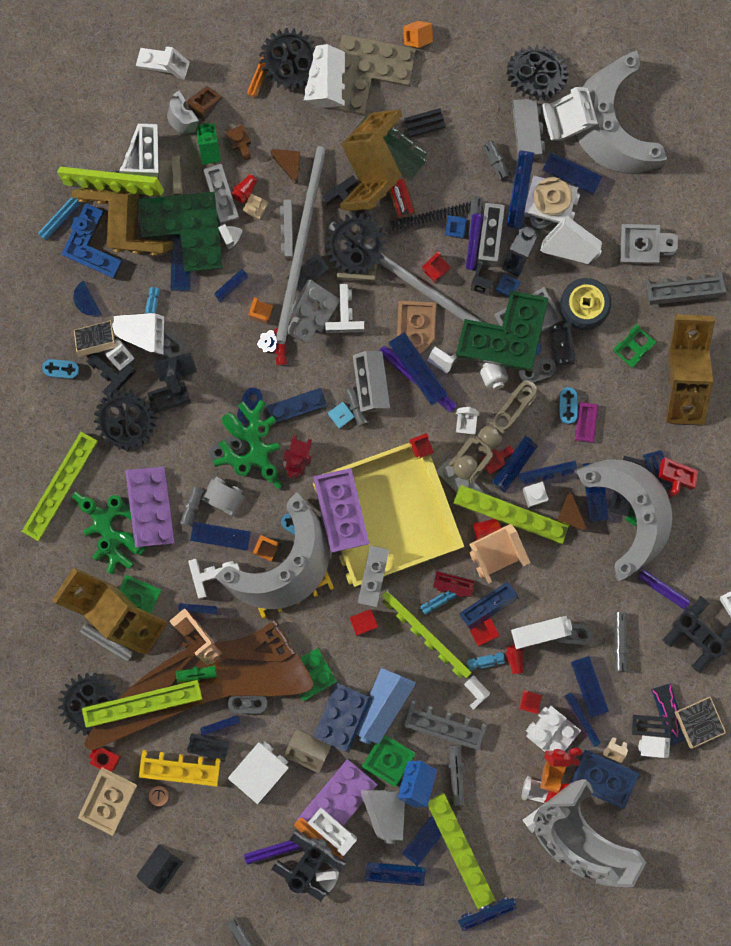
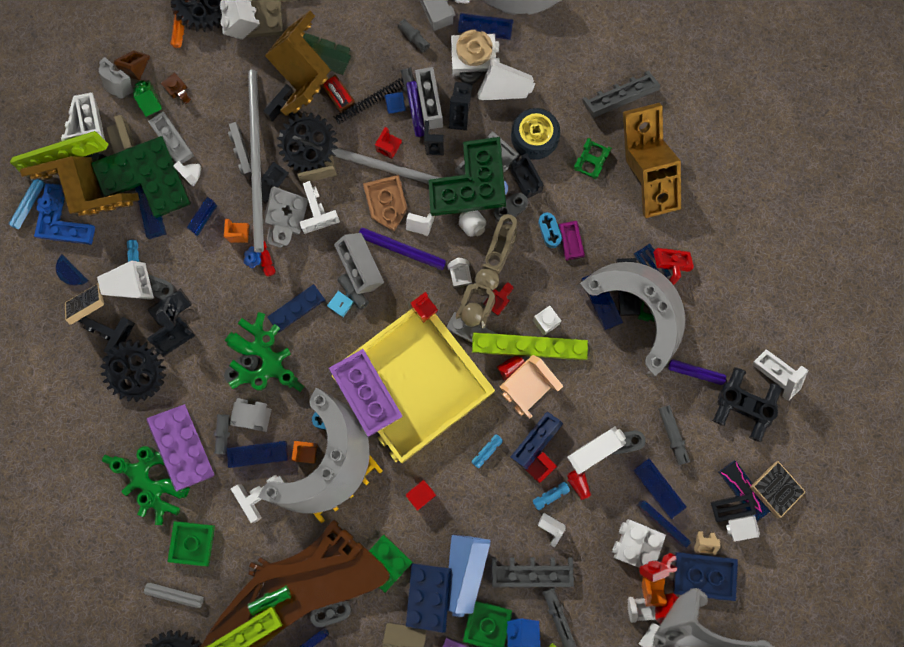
camera: 15 degrees left, 5 degrees down
(59, 486) = (87, 456): lime plate -> none
(60, 373) = (61, 338): dark azure beam -> none
(109, 611) = (163, 564): pearl gold bracket -> none
(120, 355) = (111, 311): white brick -> none
(163, 61) = (87, 36): white bracket -> none
(185, 624) = (246, 552): light nougat panel -> none
(198, 608) = (253, 533): clear blue tile -> none
(244, 189) = (190, 129): red cone -> none
(251, 404) = (246, 316): clear blue plate -> none
(255, 206) = (206, 140): tan tile -> none
(288, 161) = (225, 91): reddish brown slope -> none
(298, 457) = (309, 354): dark red hinge -> none
(373, 576) = (416, 447): light grey plate -> none
(418, 369) = (399, 238): clear blue tile -> none
(418, 629) = (492, 493): lime plate -> none
(423, 115) = (336, 21): black tile -> none
(460, 586) = (497, 429): dark red plate -> none
(507, 285) = (457, 139): blue tile -> none
(514, 464) = (518, 298): clear blue tile -> none
(520, 189) = (443, 50): clear blue tile -> none
(530, 702) = (607, 522): red panel -> none
(547, 472) = (551, 296): clear blue plate -> none
(570, 514) = (586, 329): reddish brown slope -> none
(654, 241) = (582, 65): light grey plate -> none

